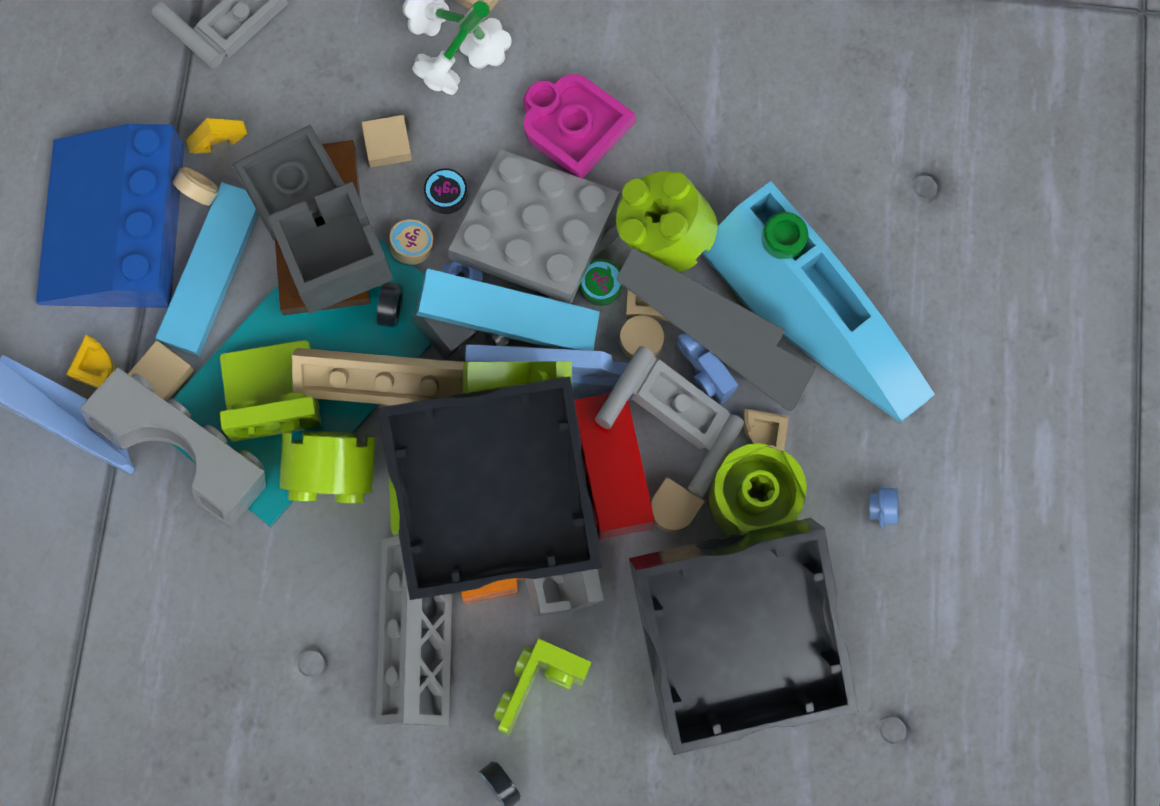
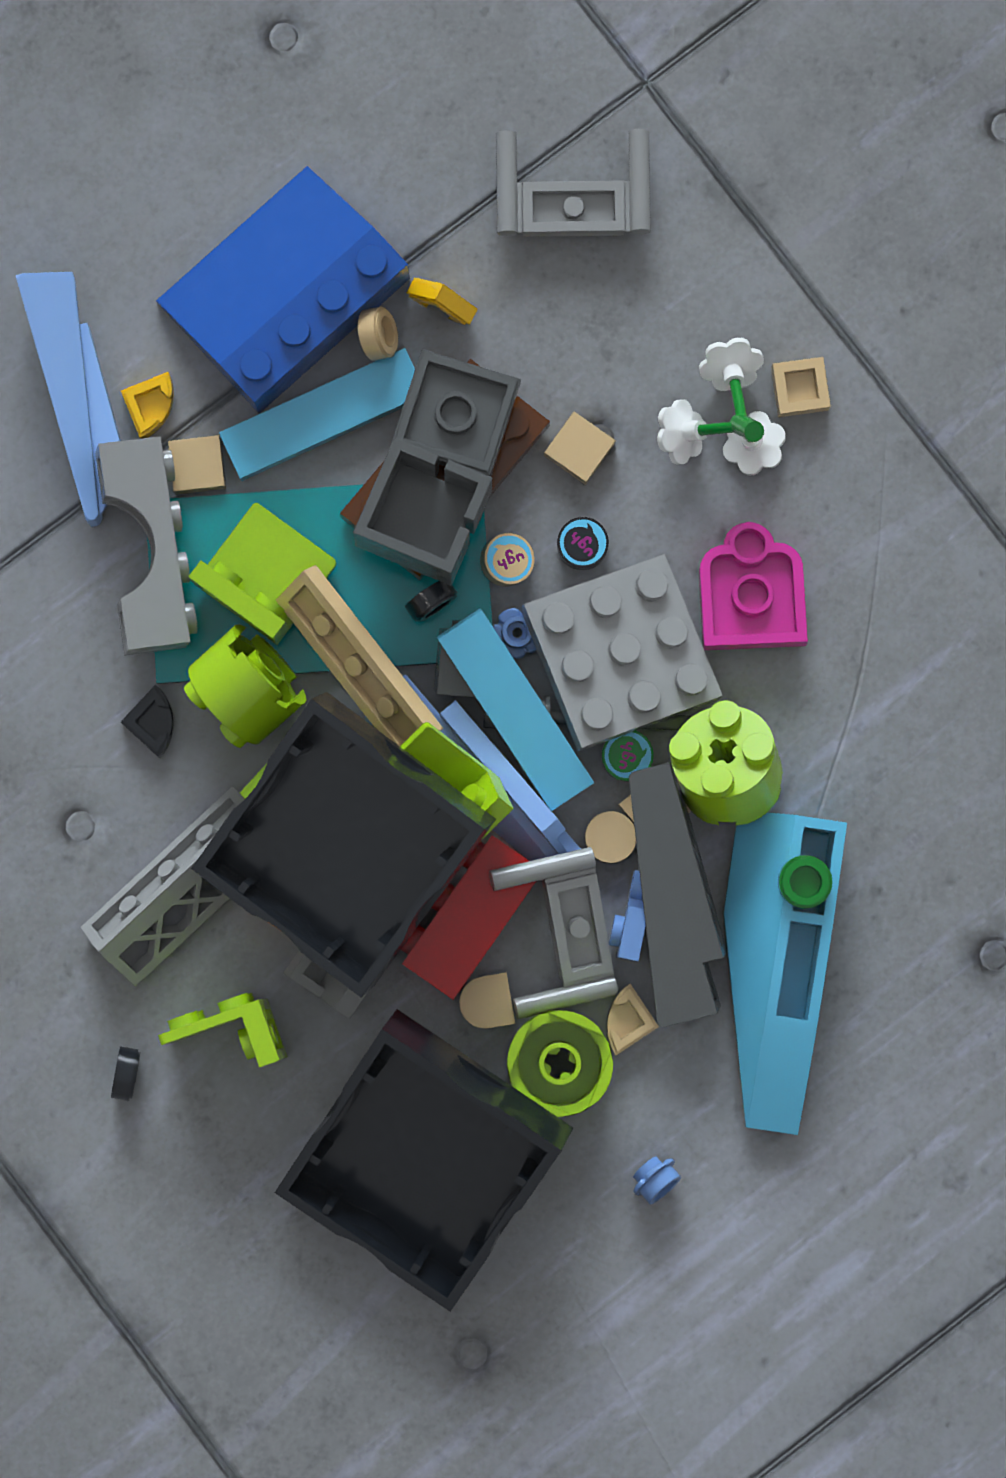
camera: 50 degrees right, 10 degrees up
(290, 552) = (152, 721): none -> black tile

